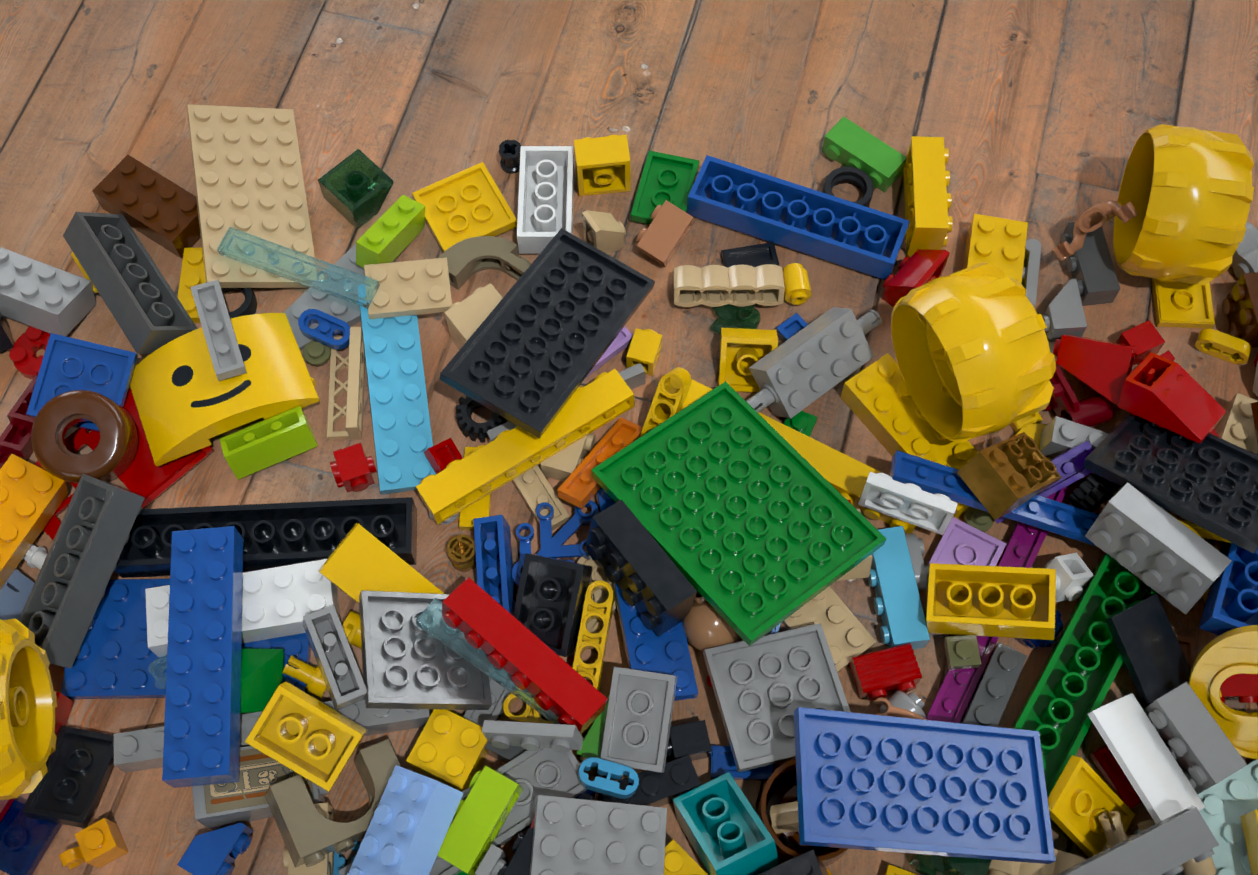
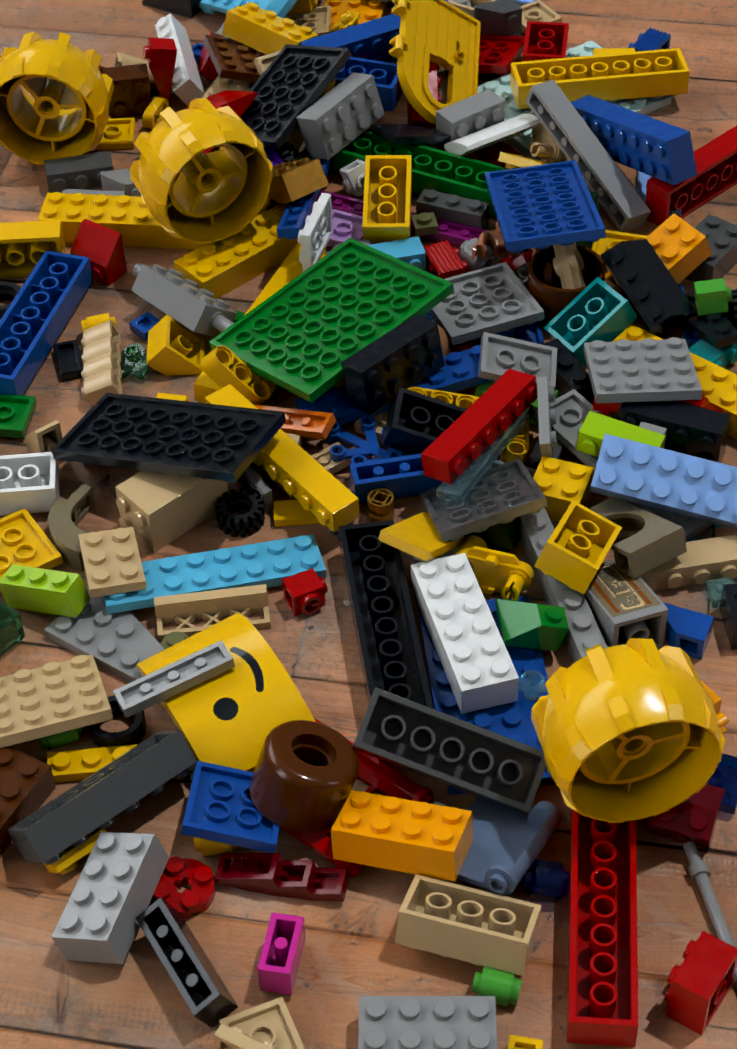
camera: 95 degrees left, 20 degrees down
(204, 658) = (523, 613): blue brick -> none
(268, 442) = (287, 650): lime brick -> none
(298, 267) = (95, 633): clear light blue tile -> none
(326, 330) = (154, 629): blue plate -> none
(334, 657) = (507, 533): light grey brick -> none
(442, 454) = (289, 526): red plate -> none
(605, 785) = (564, 375): dark azure beam -> none
(665, 233) = (47, 399): nougat brick -> none
(1091, 220) = (54, 148): nougat piece -> none

